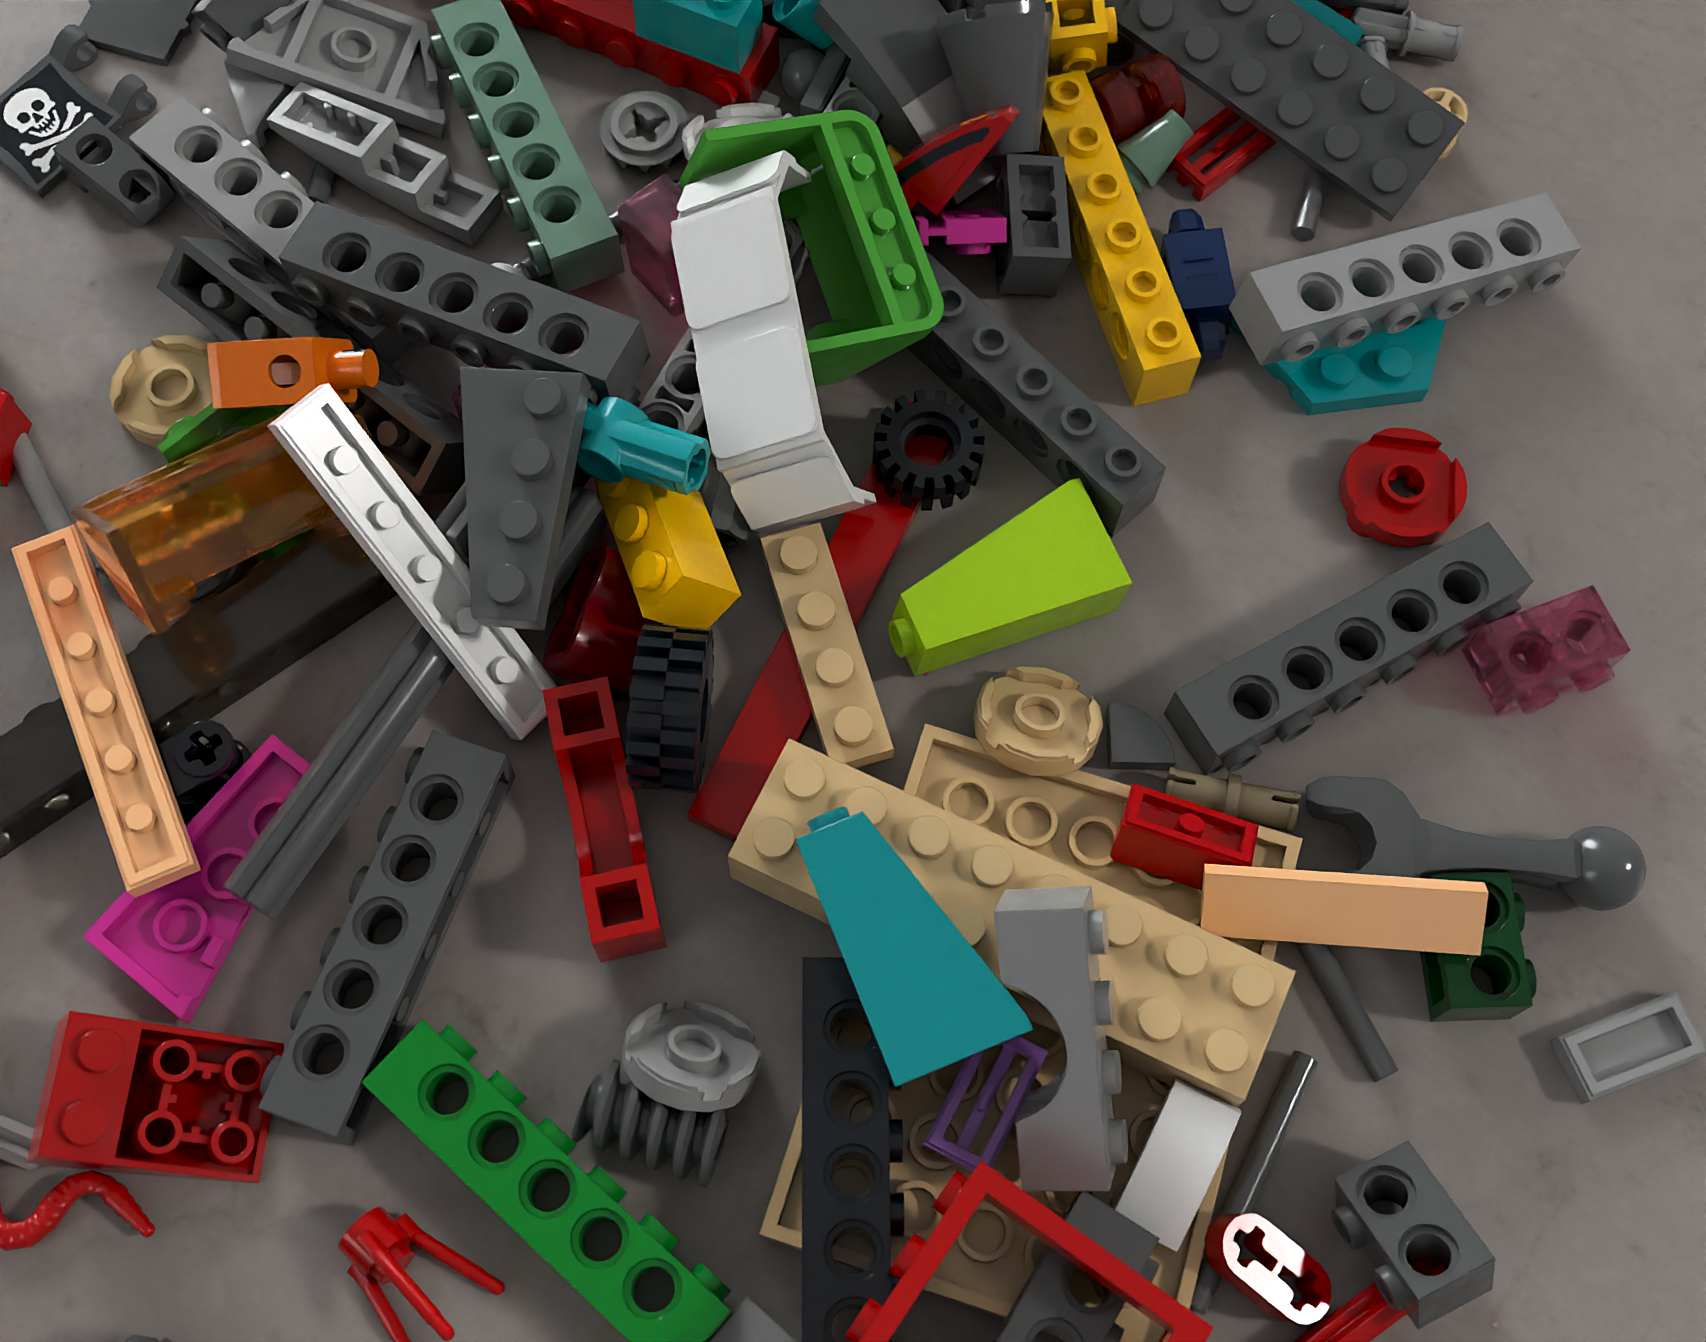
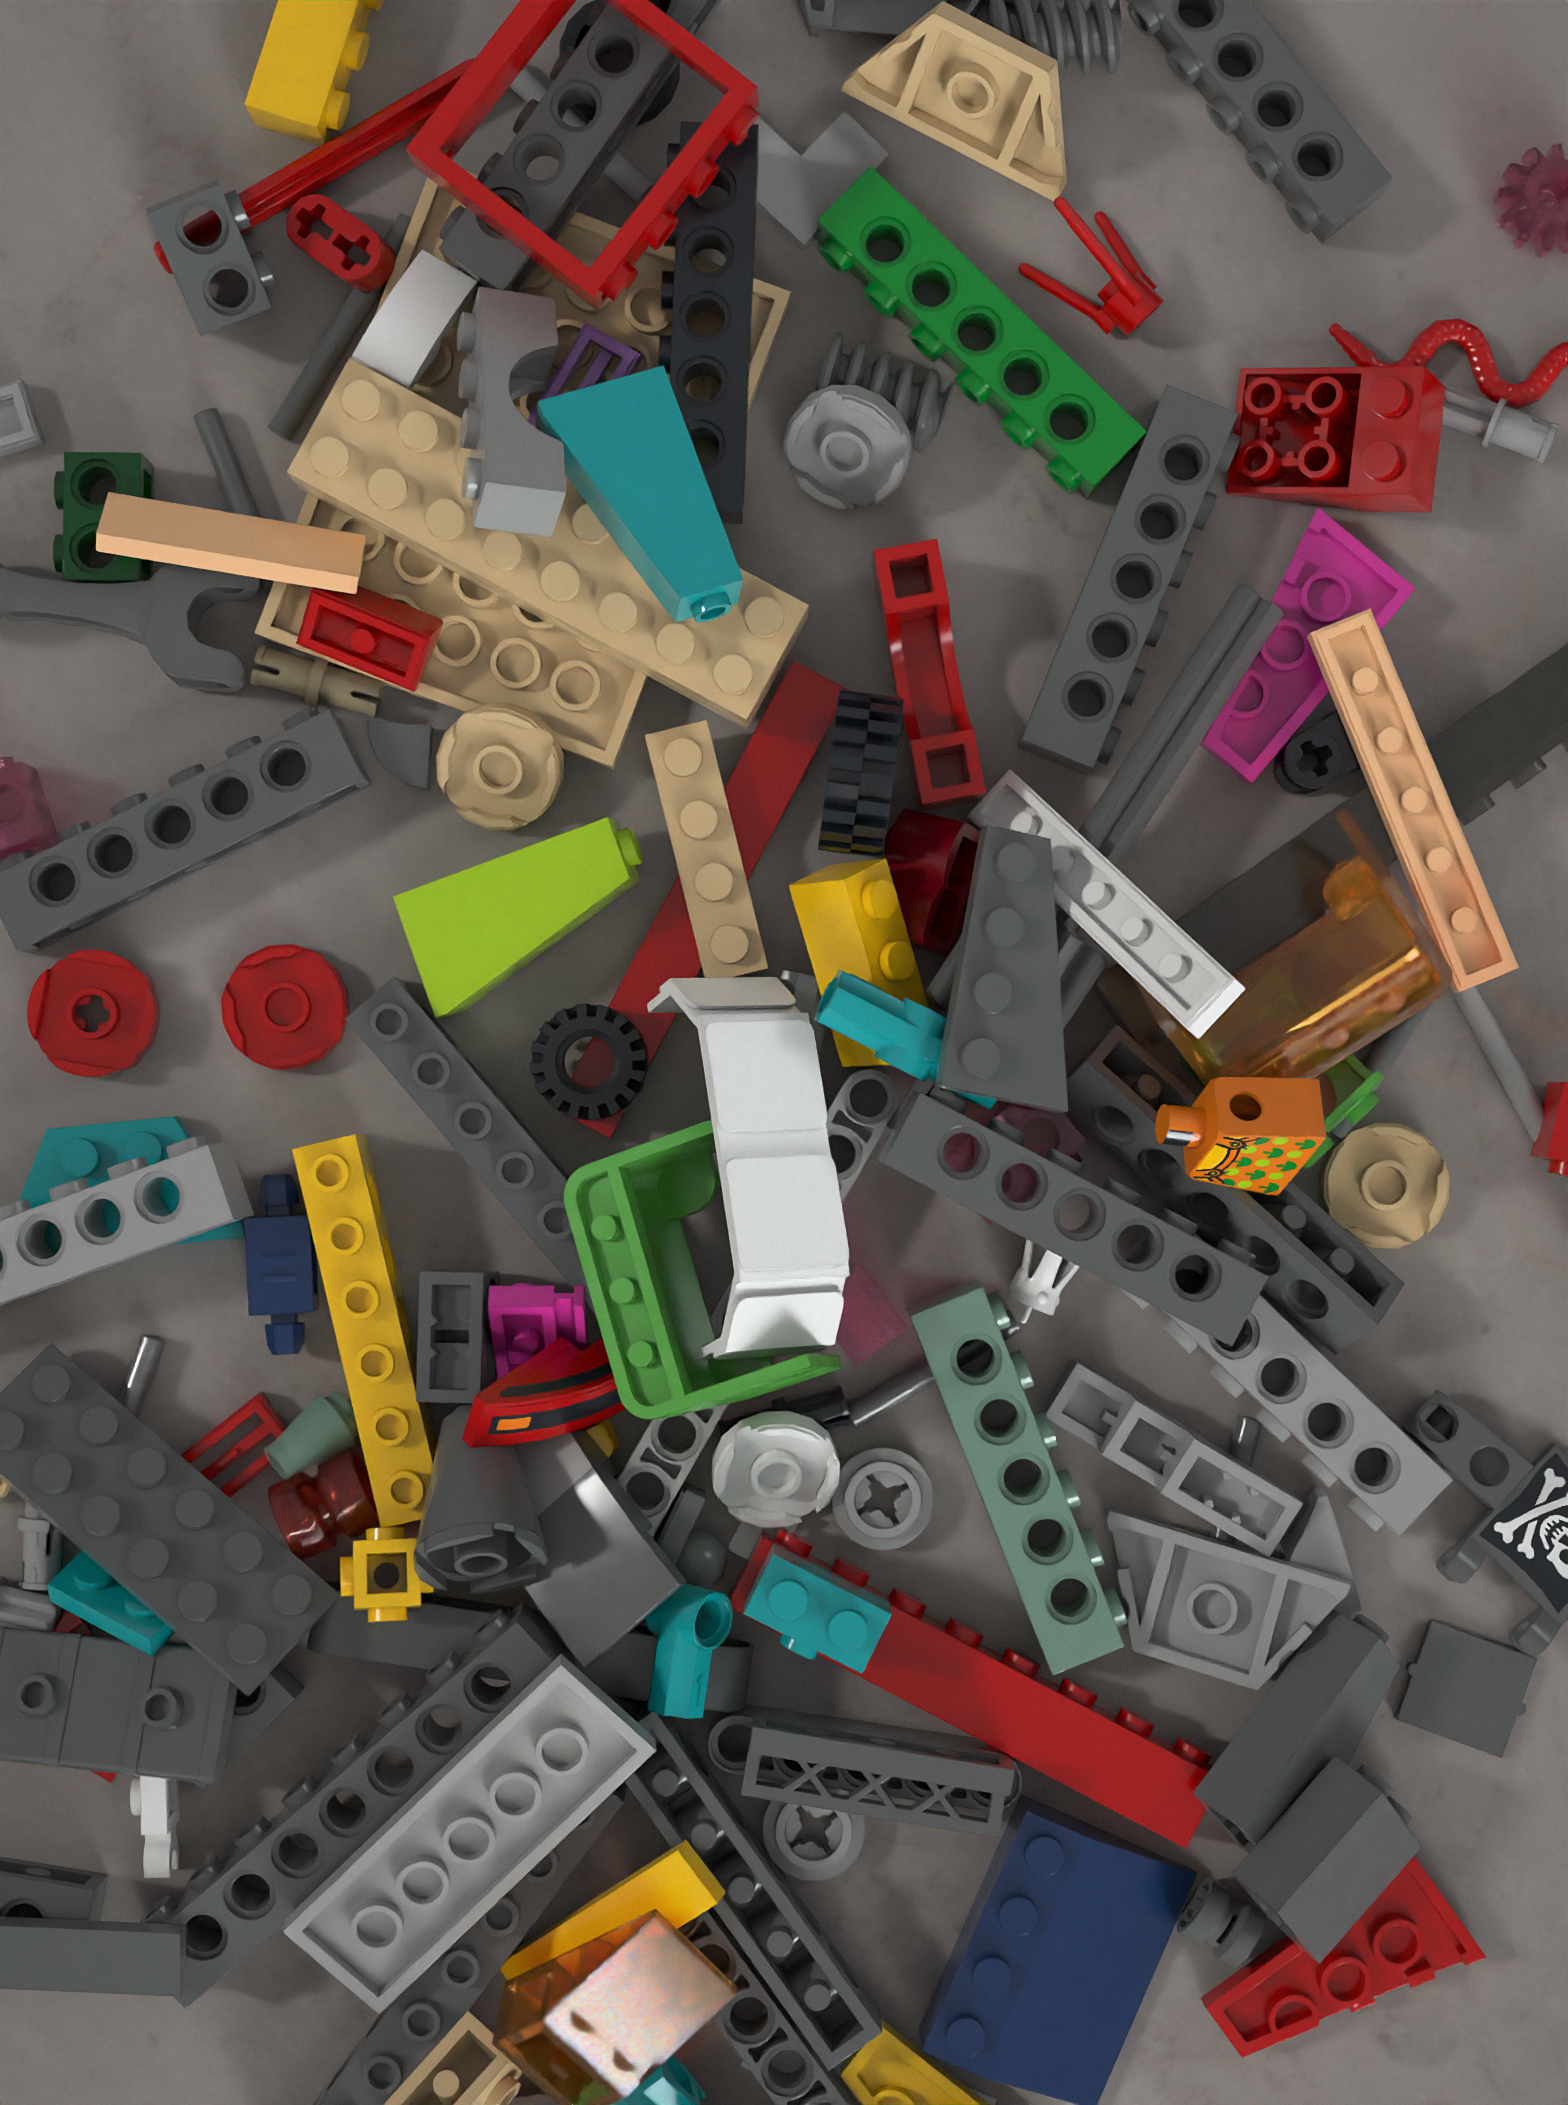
camera: 175 degrees left, 20 degrees up
(1221, 506) = (285, 1007): none -> red tile

